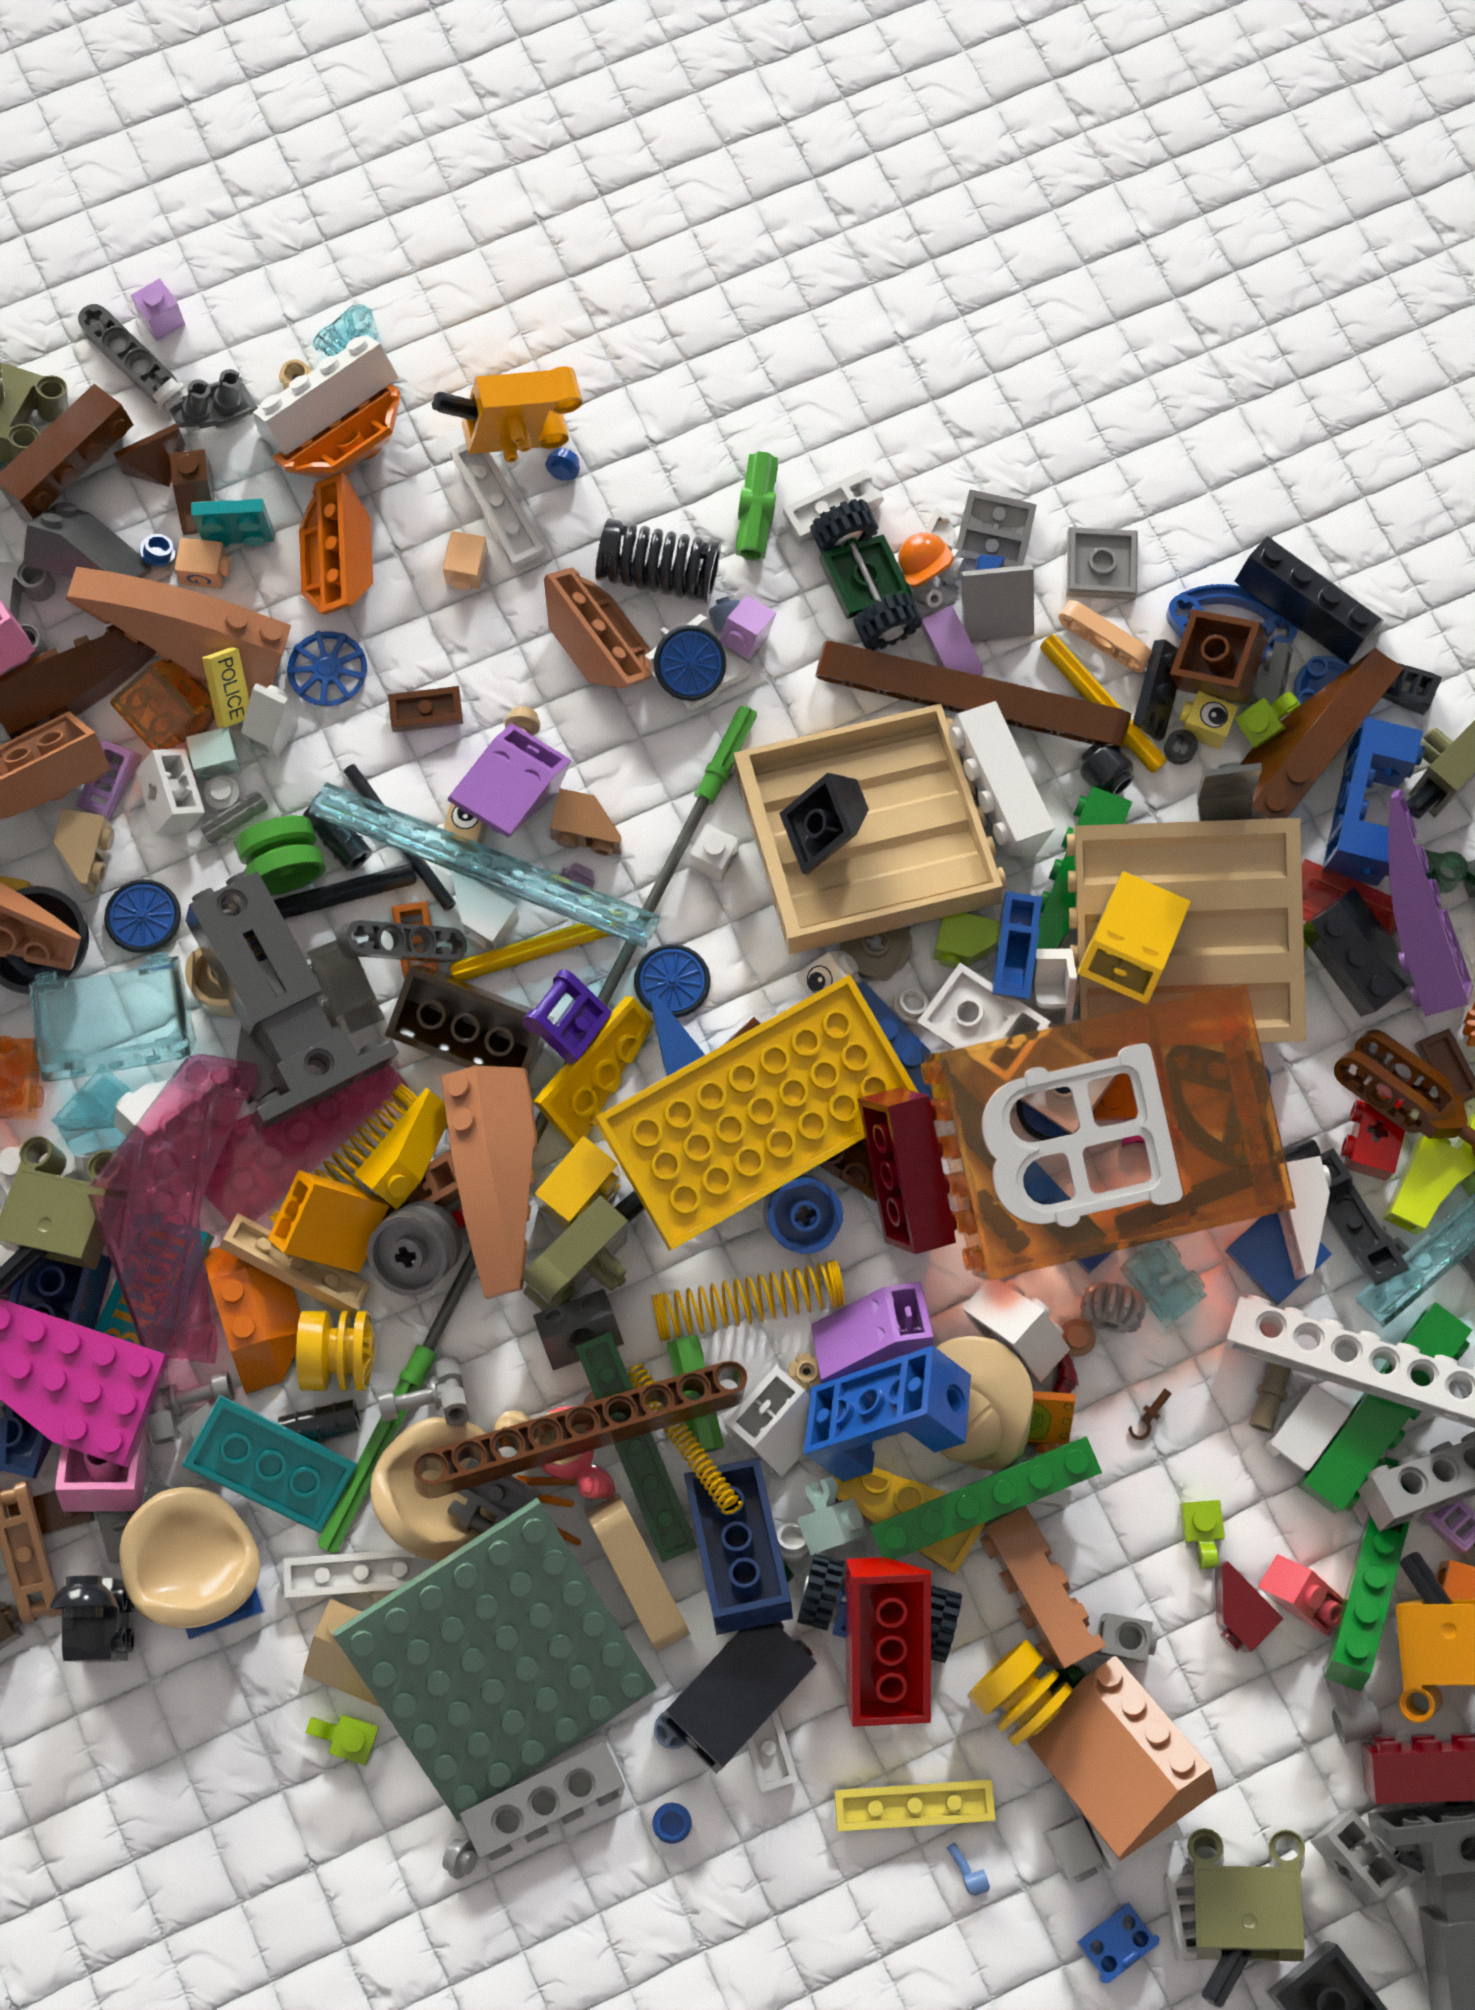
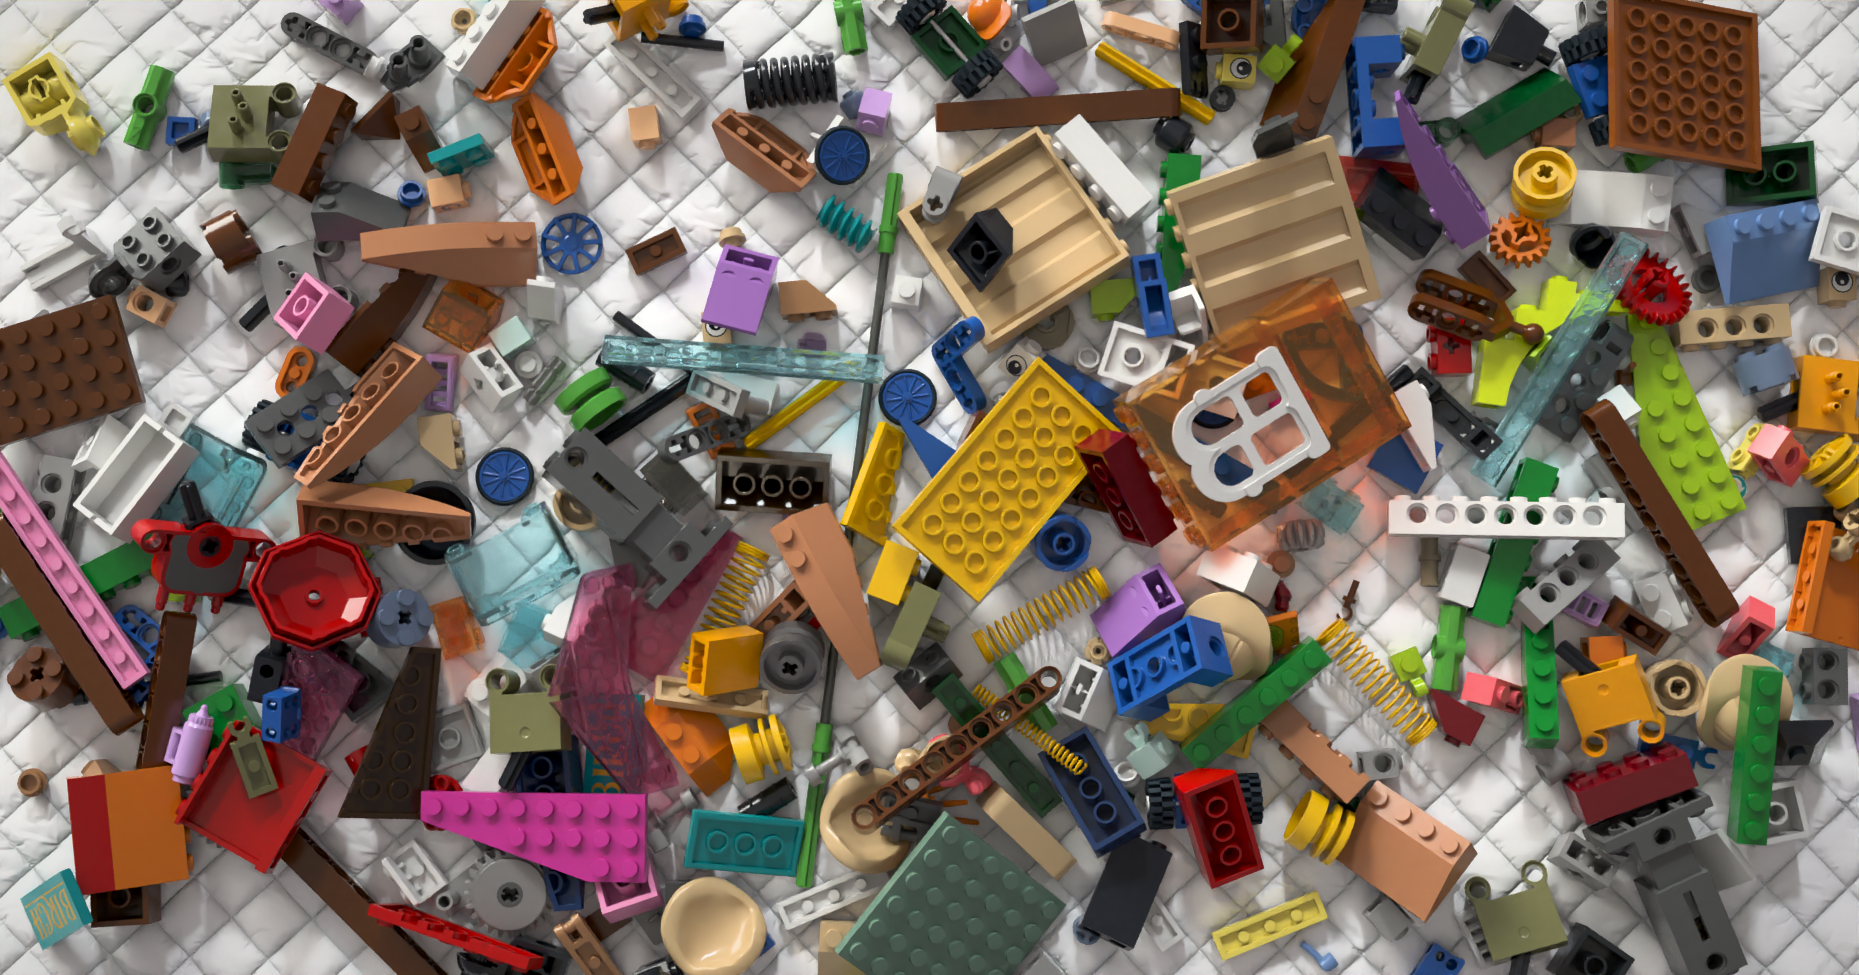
camera: 15 degrees left, 10 degrees up
(226, 686) = (505, 286): light yellow tile -> none
(406, 1150) = (762, 590): yellow slope -> none
(447, 899) = (724, 395): none -> light grey piece
(547, 479) = (686, 42): none -> black bar
(577, 1023) = (852, 457): dark purple plate -> none
(667, 750) = (846, 224): none -> teal piece
(741, 953) = (967, 389): none -> blue beam
(793, 745) = (941, 191): none -> light grey piece
(1134, 937) = (1237, 265): yellow slope -> none
(1195, 1610) = (1417, 734): none -> yellow piece
(1261, 1516) = (1448, 648): none -> bright green piece

